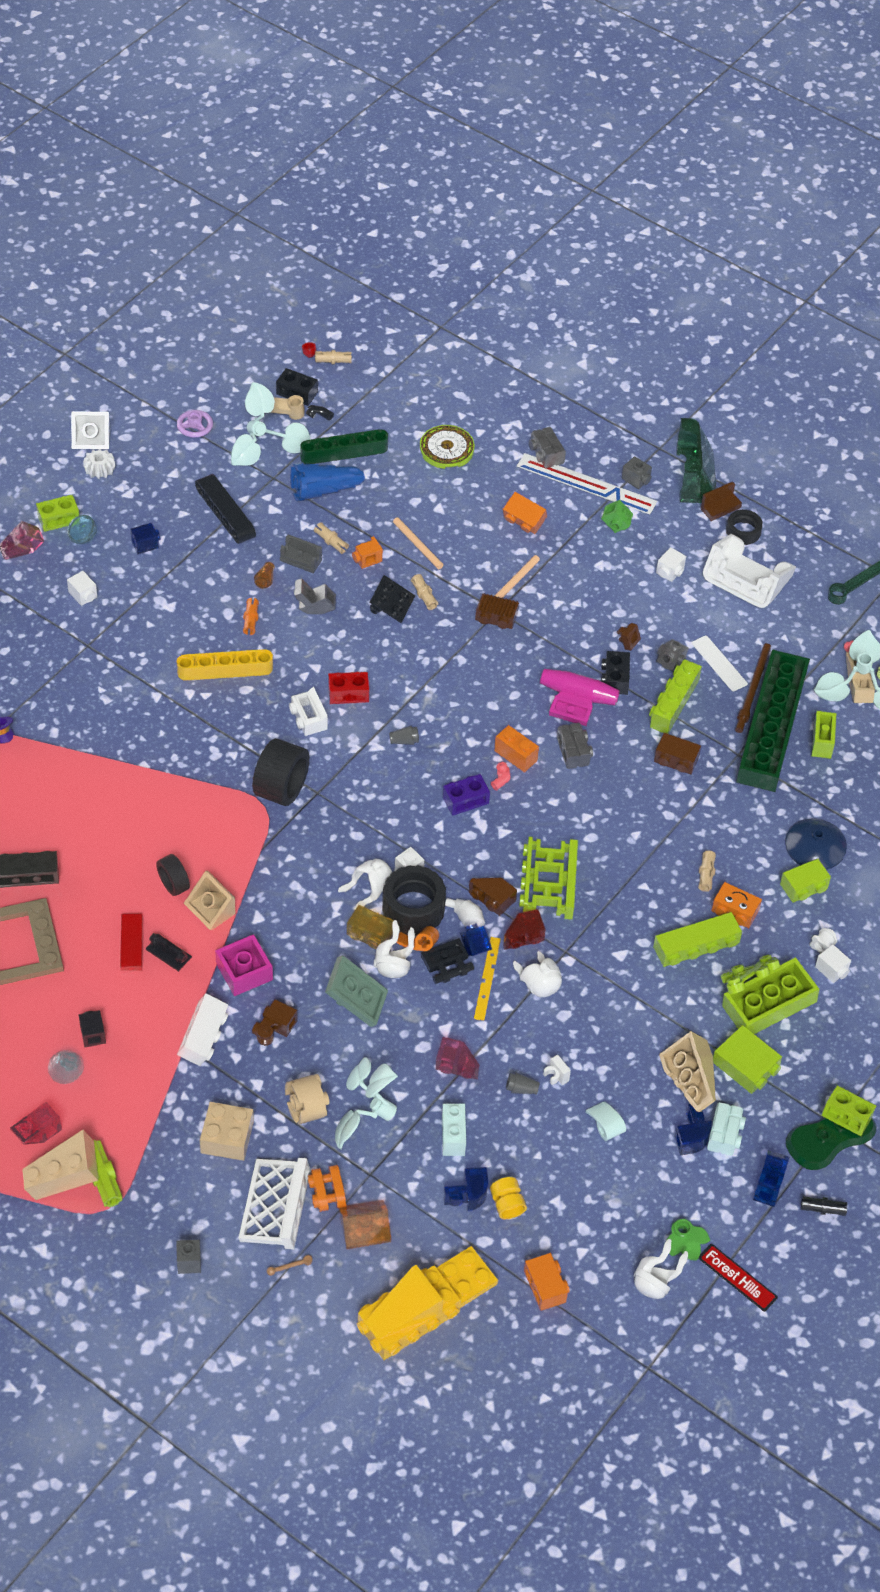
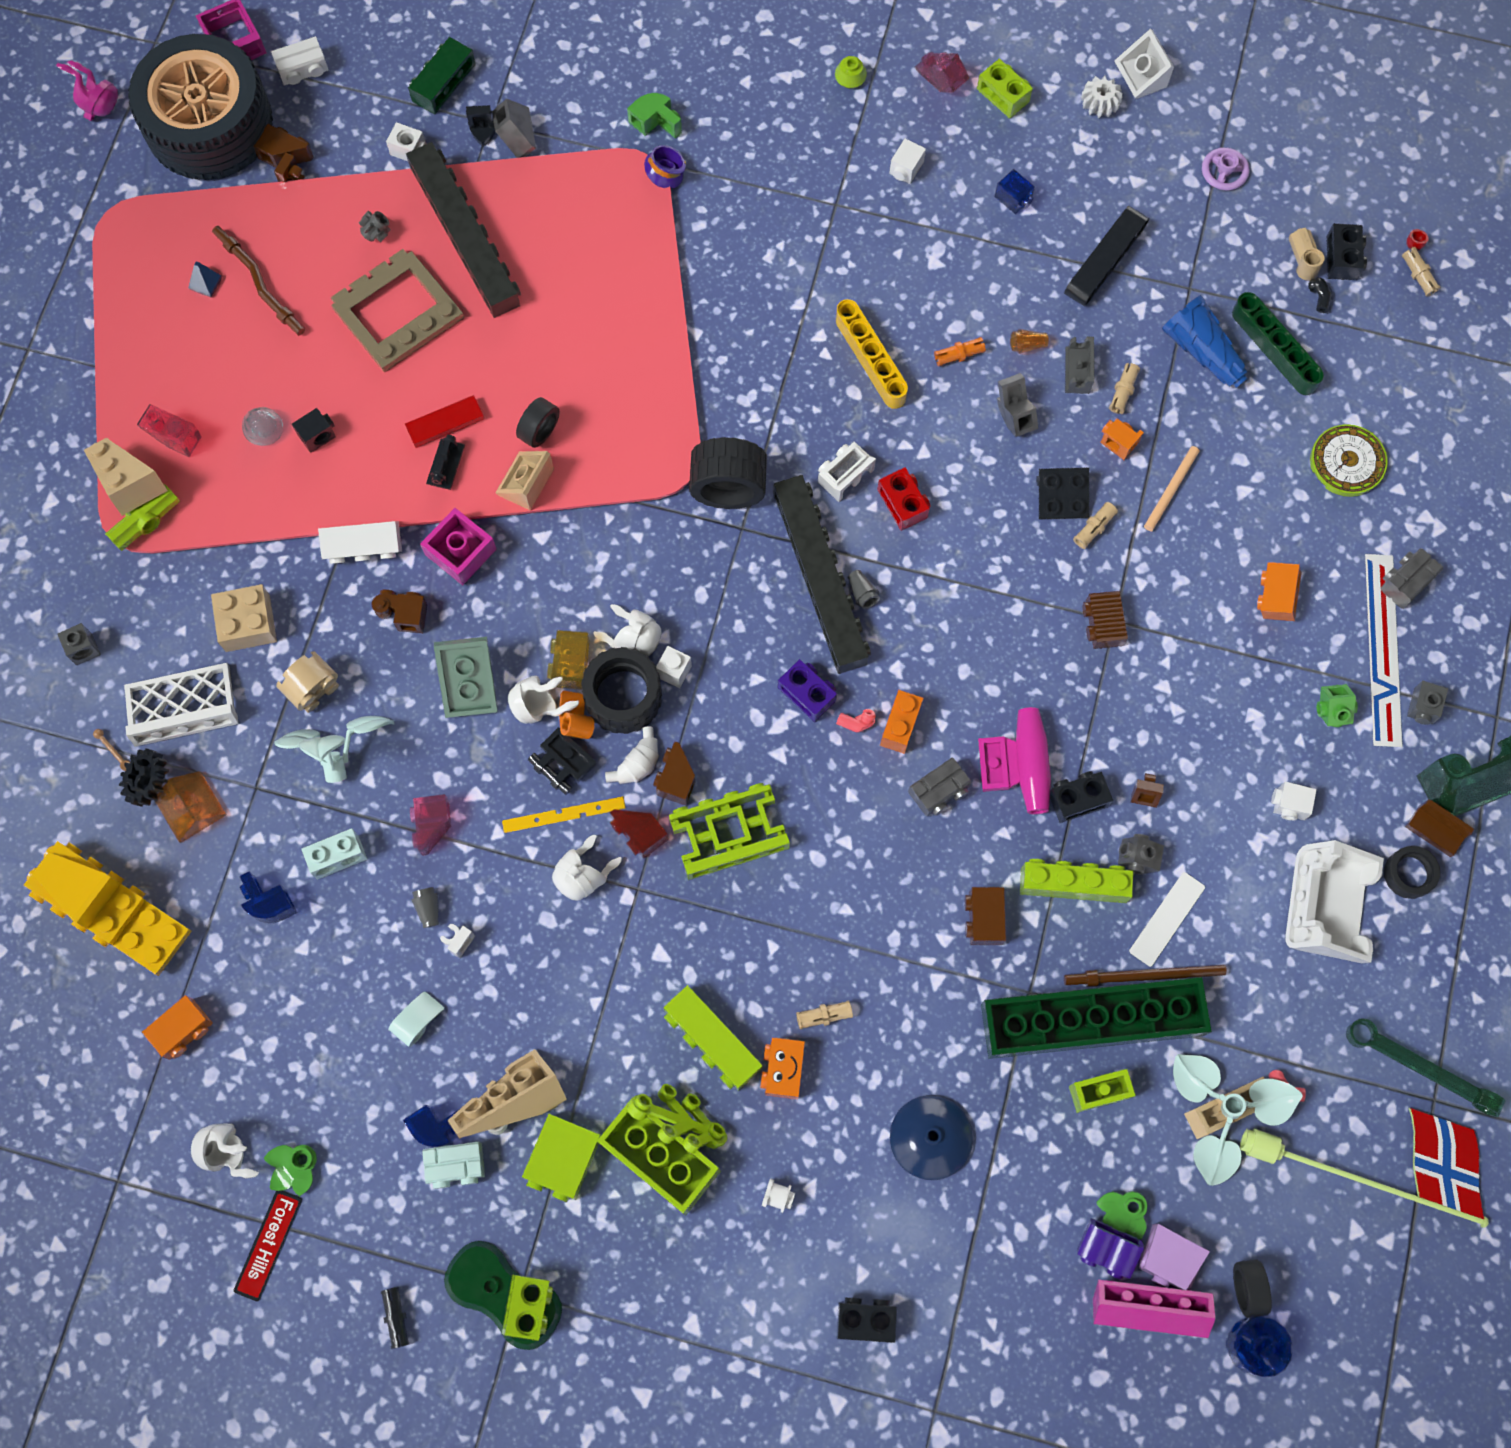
camera: 70 degrees right, 20 degrees up
(82, 529) = (990, 123): clear light blue piece -> none
(257, 402) = (1266, 216): light aqua plant -> none
(320, 1198) = (212, 750): orange brick -> none
(332, 1232) = (143, 777): none -> black gear
(382, 755) = (820, 574): none -> pearl dark grey brick
(475, 939) = (597, 780): clear blue brick -> none
(508, 1201) = (264, 949): yellow wheel -> none
(518, 576) = (1173, 622): light nougat bar -> none
(771, 1178) = (397, 1241): clear blue brick -> none
(805, 880) = (859, 1143): lime brick -> none
(833, 964) = (746, 1219): white brick -> none

